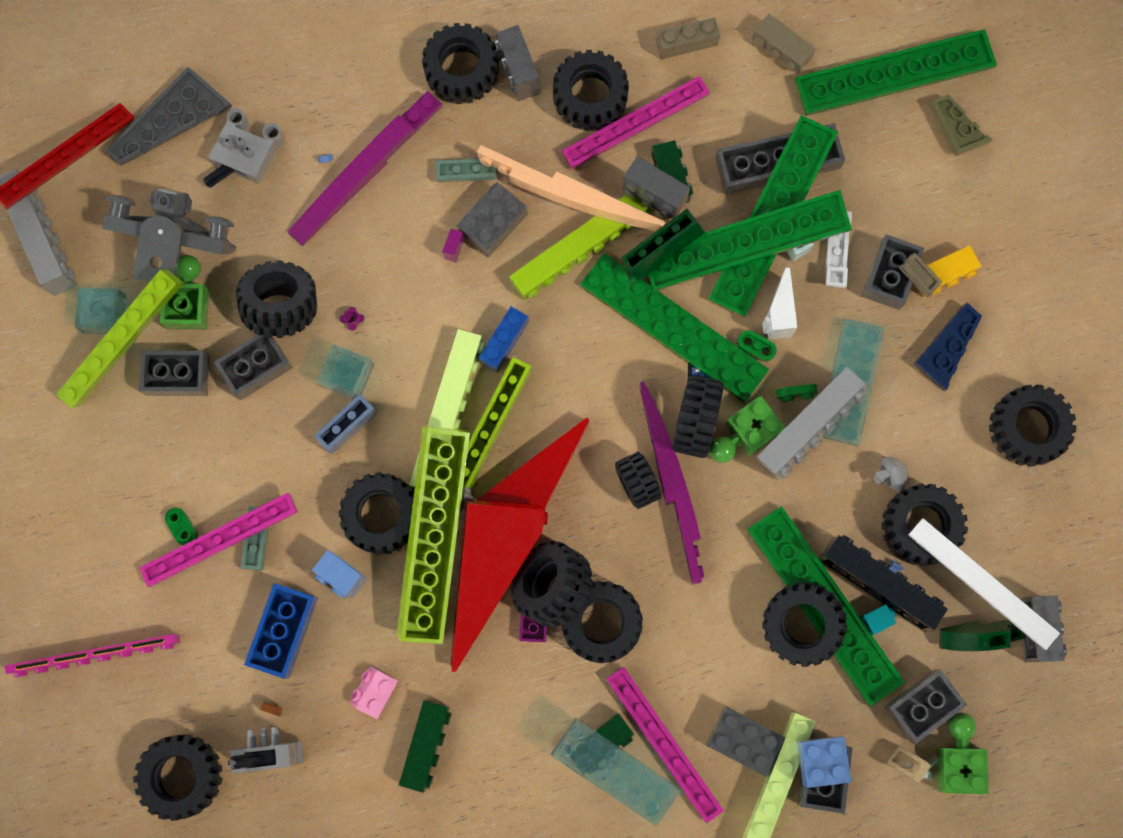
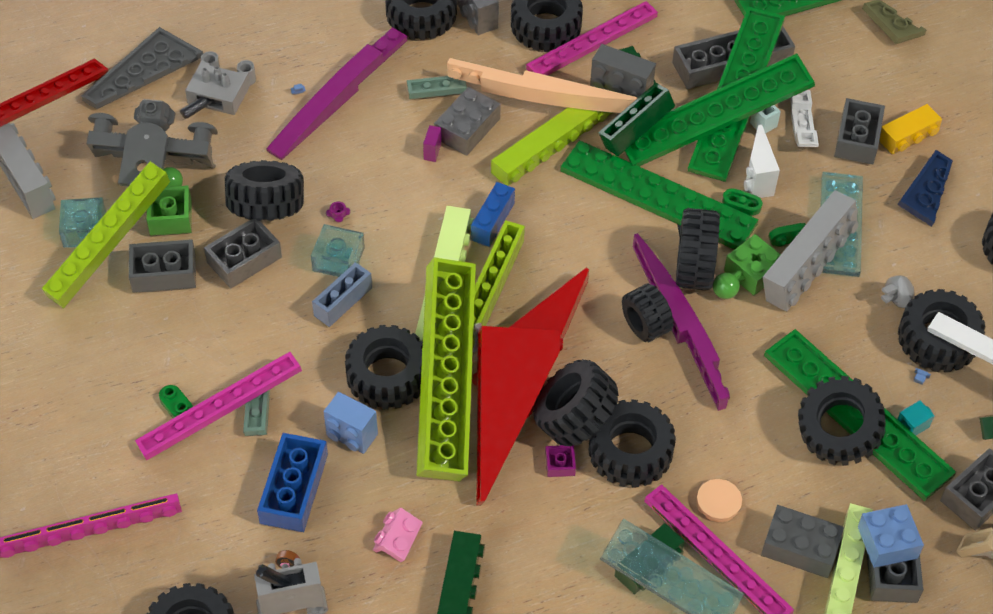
camera: 10 degrees left, 25 degrees down
(676, 685) = (719, 500): none -> light nougat tile
(883, 584) = (911, 380): black brick -> none
(920, 275) = (887, 125): dark tan tile -> none

